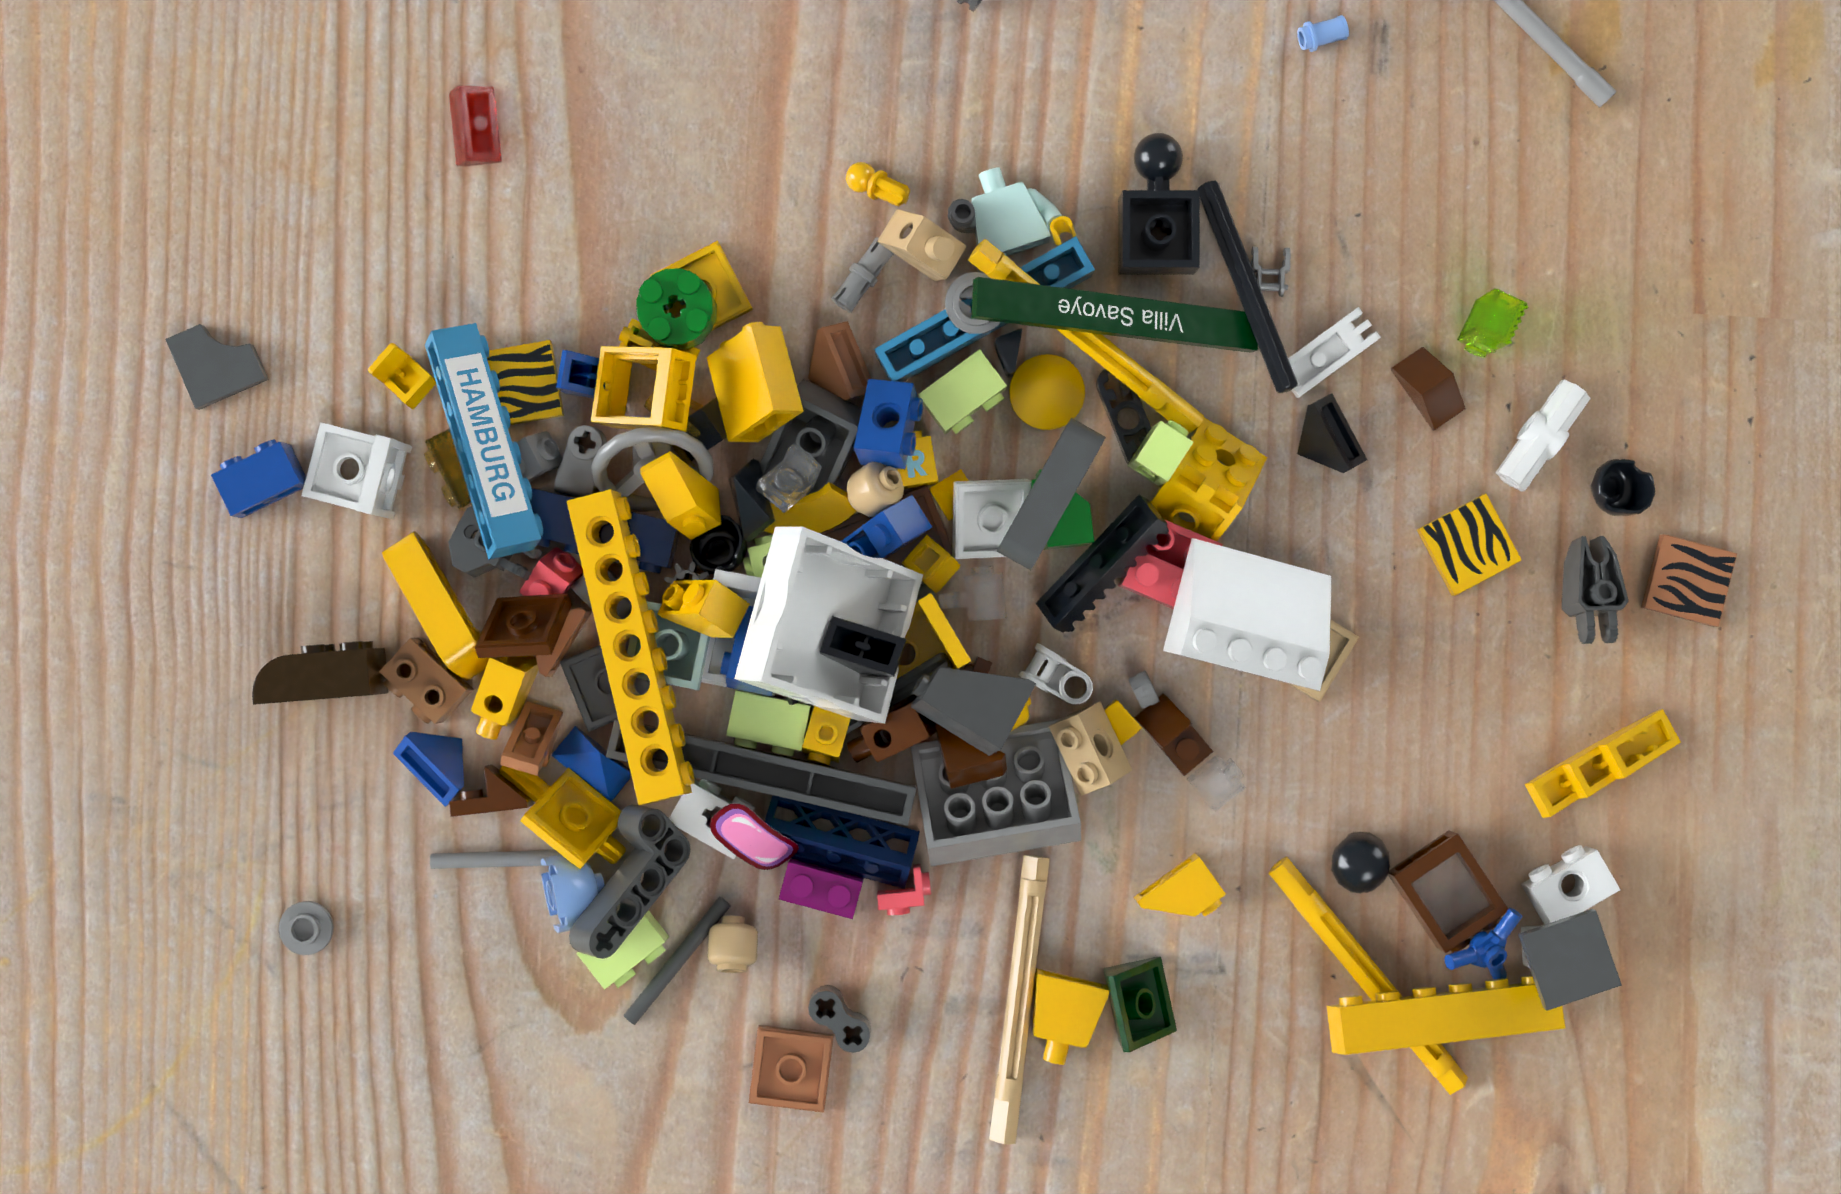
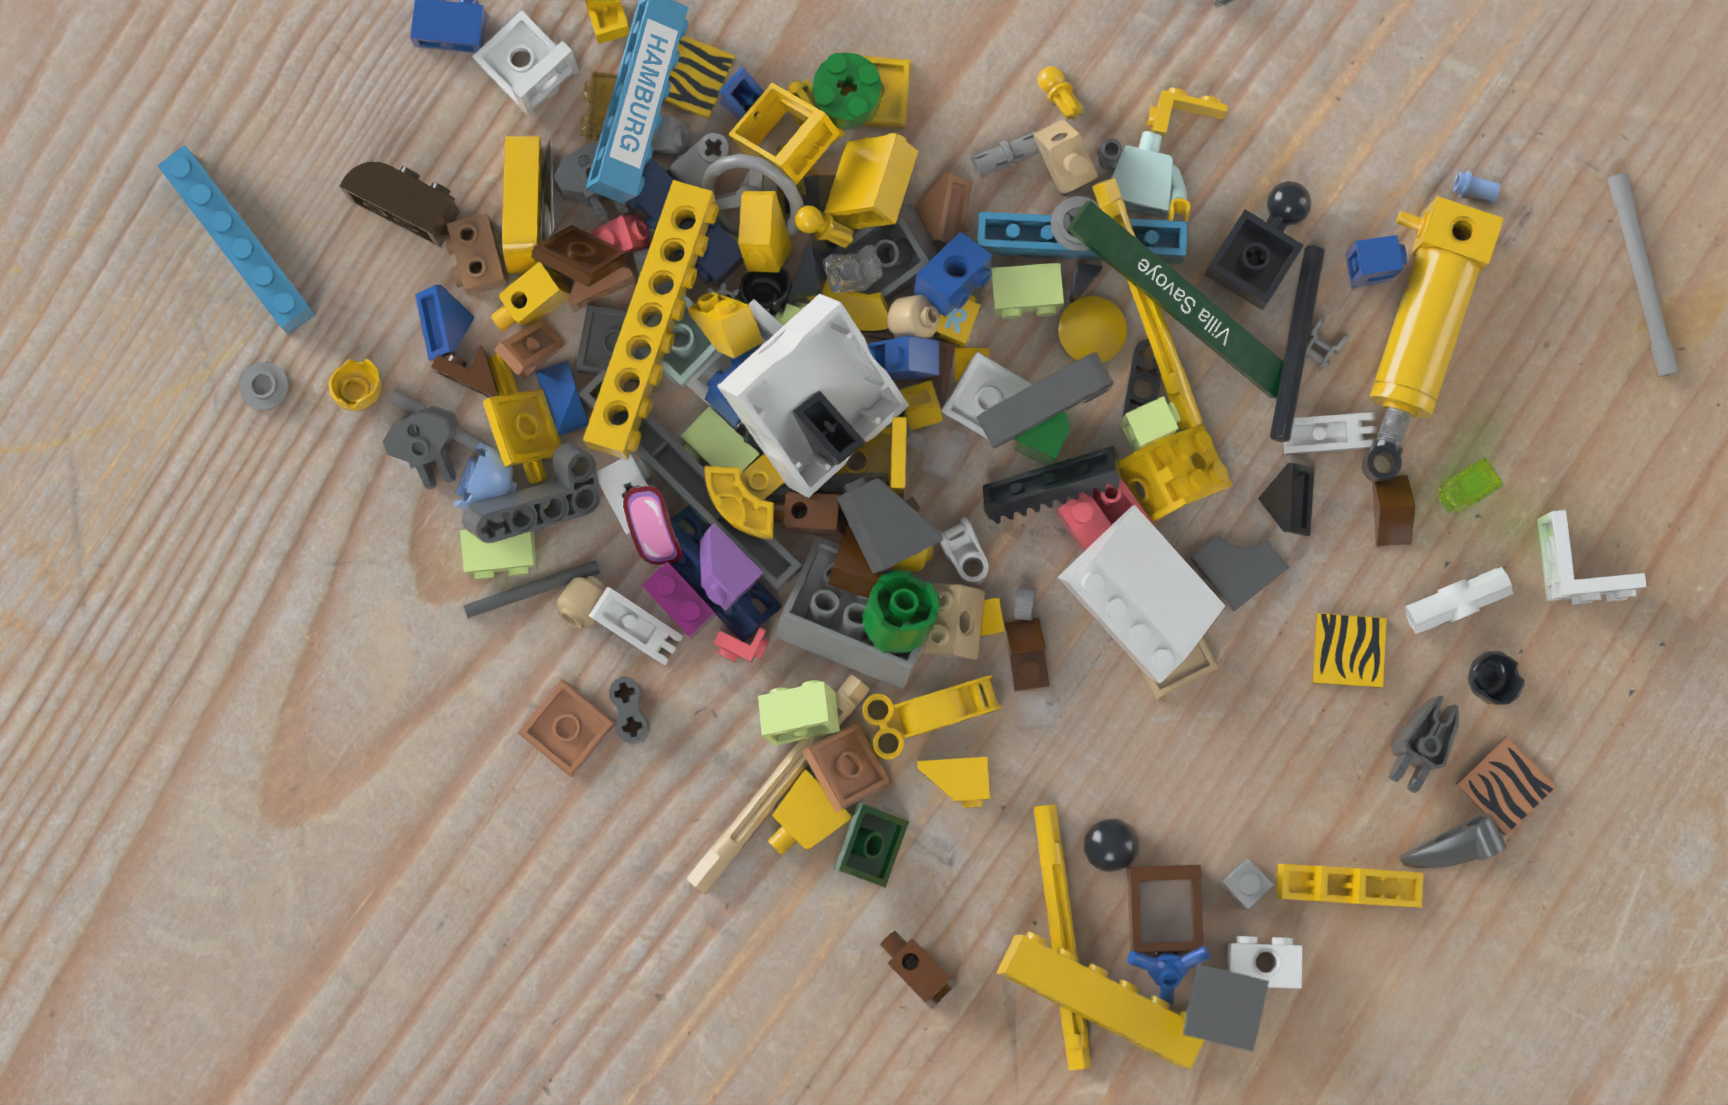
camera: 35 degrees right, 5 degrees down
(190, 808) = (236, 240): none -> dark azure brick
(391, 875) = (356, 385): none -> yellow hair
(456, 584) = (547, 194): none -> sticker
(488, 887) = (424, 439): none -> dark grey hinge
(720, 457) = (810, 220): none -> yellow axle
(794, 937) = (634, 625): none -> white hinge
(821, 769) = (737, 504): none -> yellow tile
(847, 836) = (725, 568): none -> medium lavender slope
(985, 149) = (1178, 99): none -> yellow bracket
(998, 924) = (798, 712): none -> yellowish green brick
(1037, 776) = (900, 612): none -> green brick
(1074, 946) = (846, 767): none -> nougat tile
(1119, 846) = (930, 712): none -> yellow piece
(1270, 1102) = (927, 979): none -> reddish brown torso
(1274, 162) = (1375, 261): none -> blue brick
(1321, 535) = (1238, 571): none -> dark grey tile
(1357, 187) = (1428, 320): none -> yellow piece
(1509, 823) = (1246, 884): none -> light grey brick
(1621, 347) = (1559, 568): none -> white bracket
(1681, 659) = (1467, 842): none -> dark grey piece

